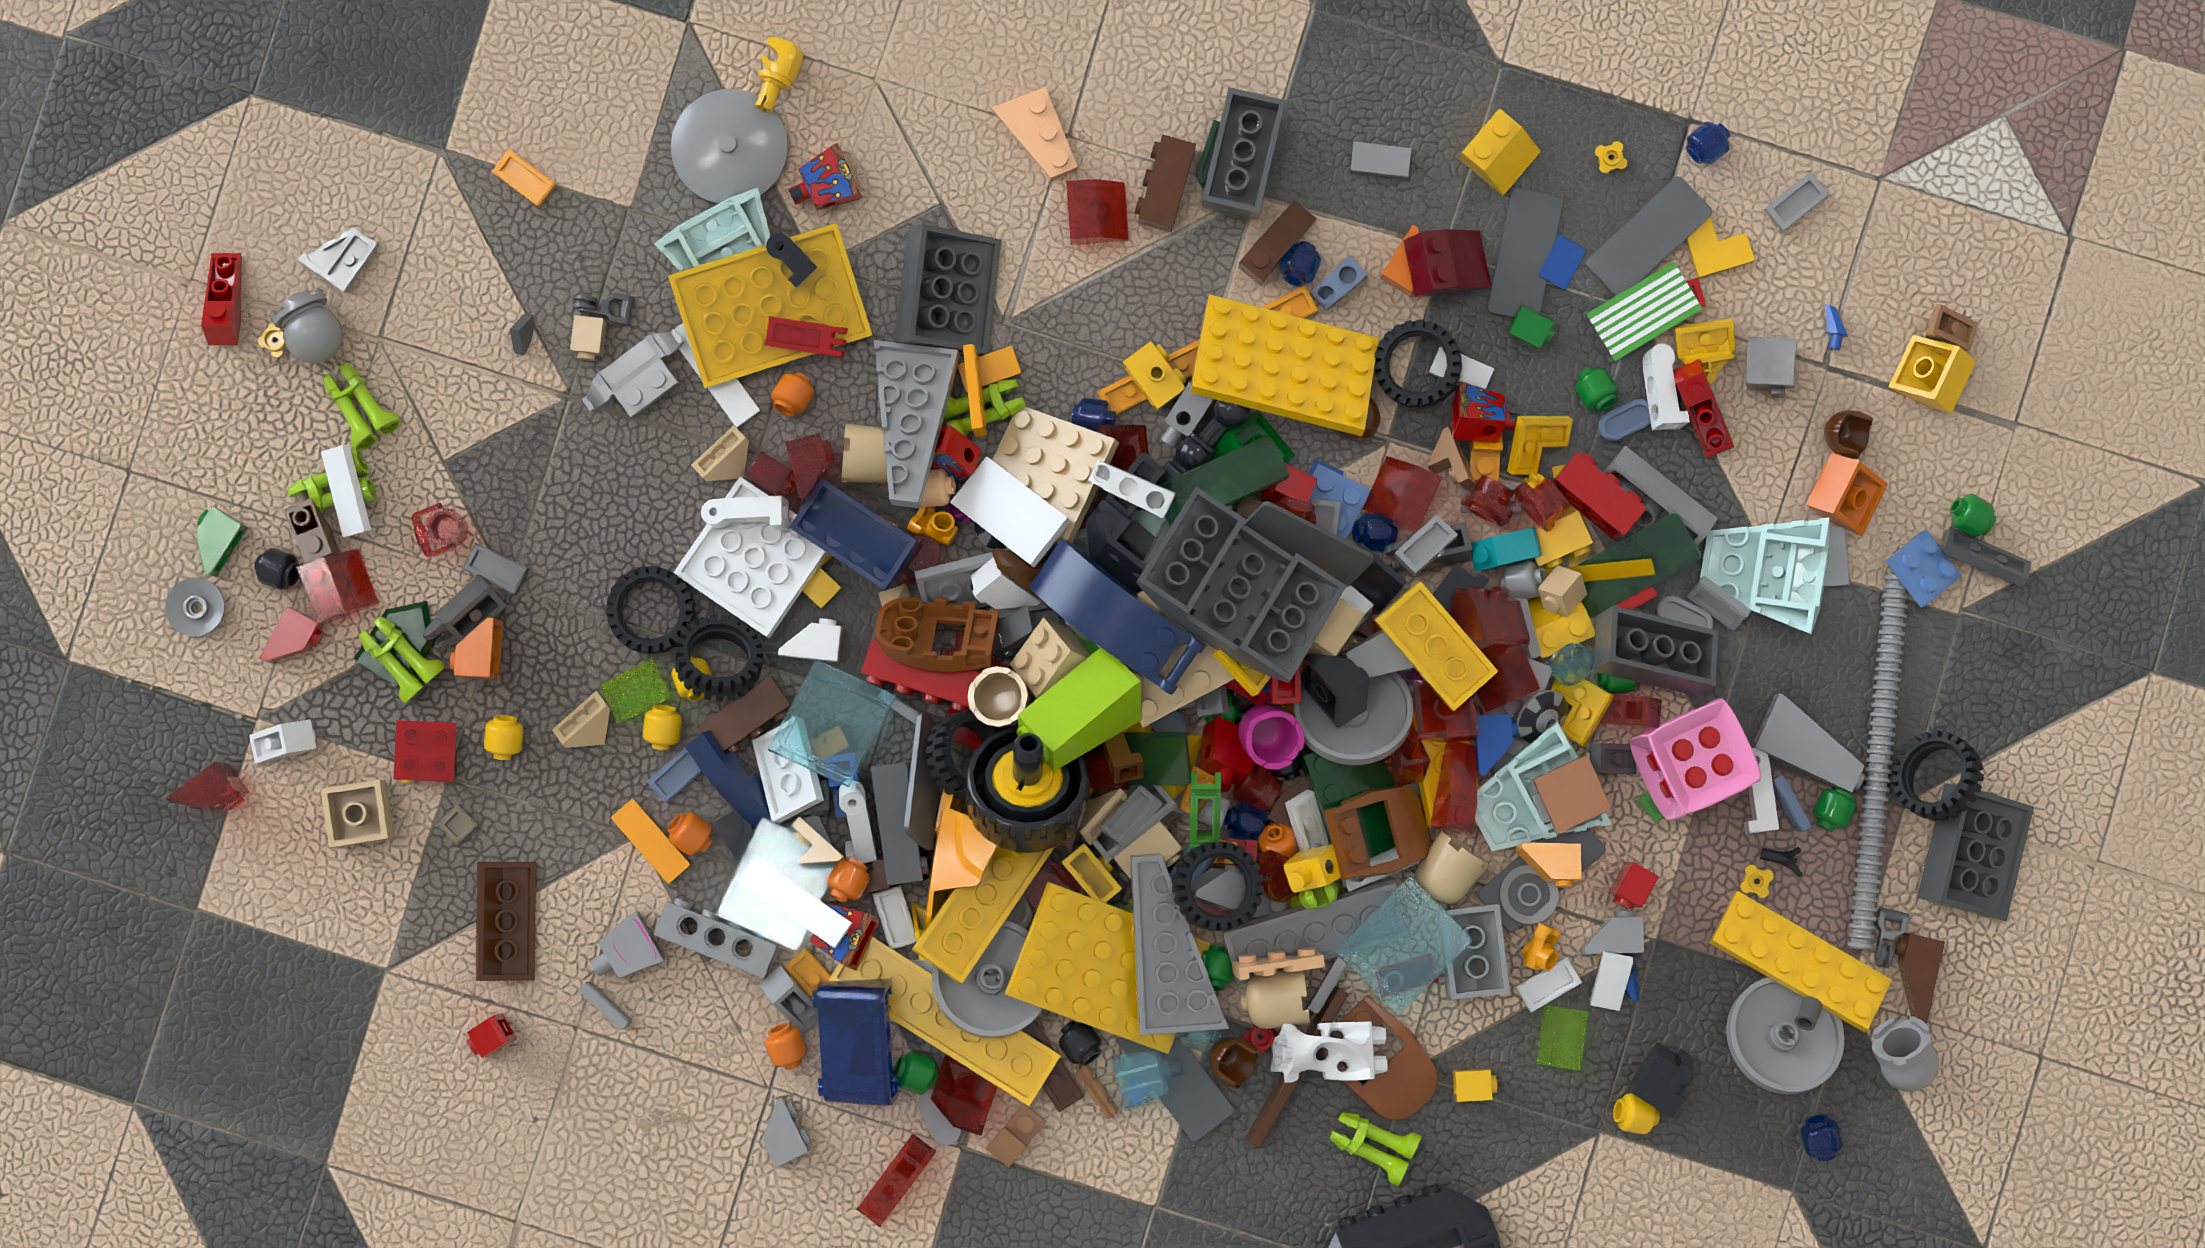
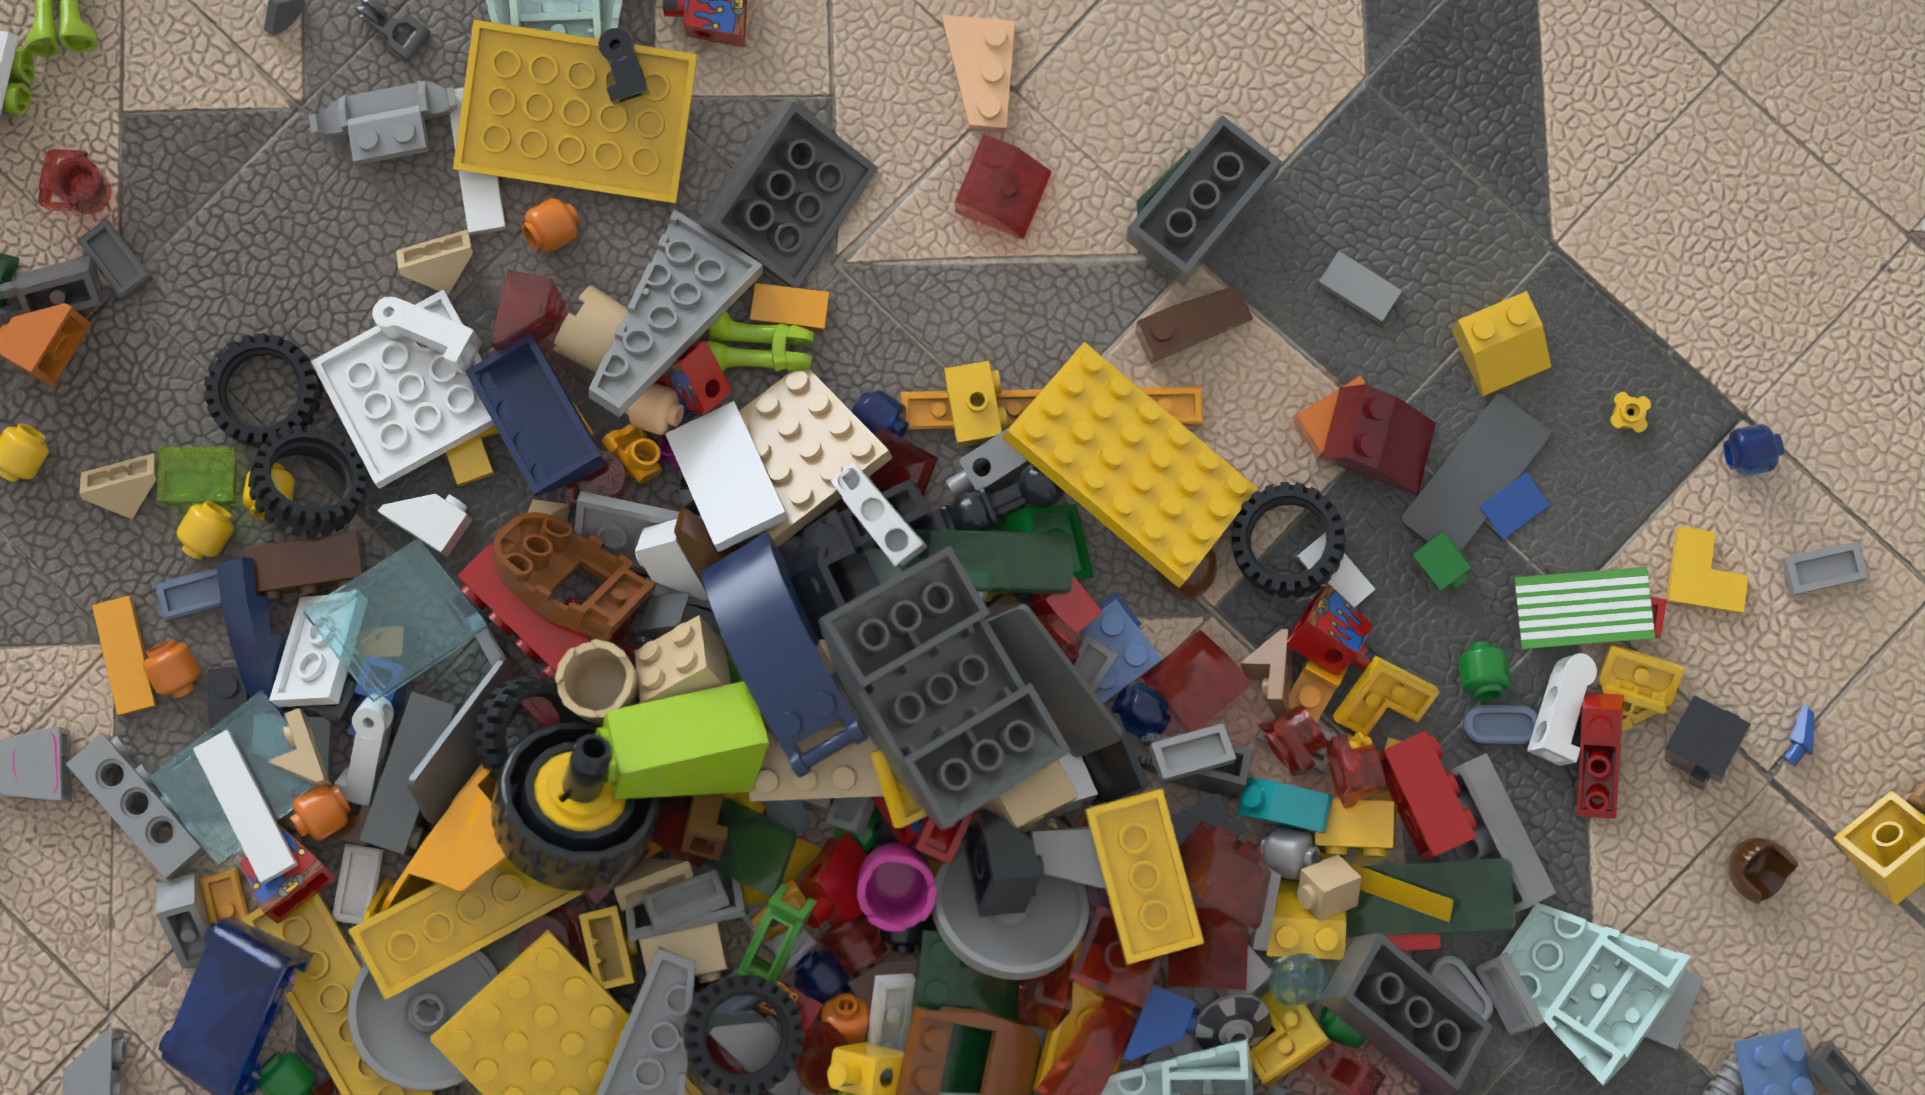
camera: 25 degrees right, 5 degrees down
(588, 337) = (354, 50): tan brick -> none
(771, 476) = (473, 301): clear red brick -> none
(785, 1046) = (151, 972): orange head -> none
(804, 336) = (594, 164): red hinge -> none
(975, 390) = (758, 320): light orange tile -> none
(1165, 183) = (1098, 193): reddish brown brick -> none
(1300, 264) = (1207, 359): clear blue head -> none
(1339, 283) = (1242, 403): sand blue leg -> none
(1649, 236) = (1632, 524): dark grey piece -> none
(1847, 493) = (1725, 939): orange slope -> none
(1972, 515) = (1864, 1040): green head -> none

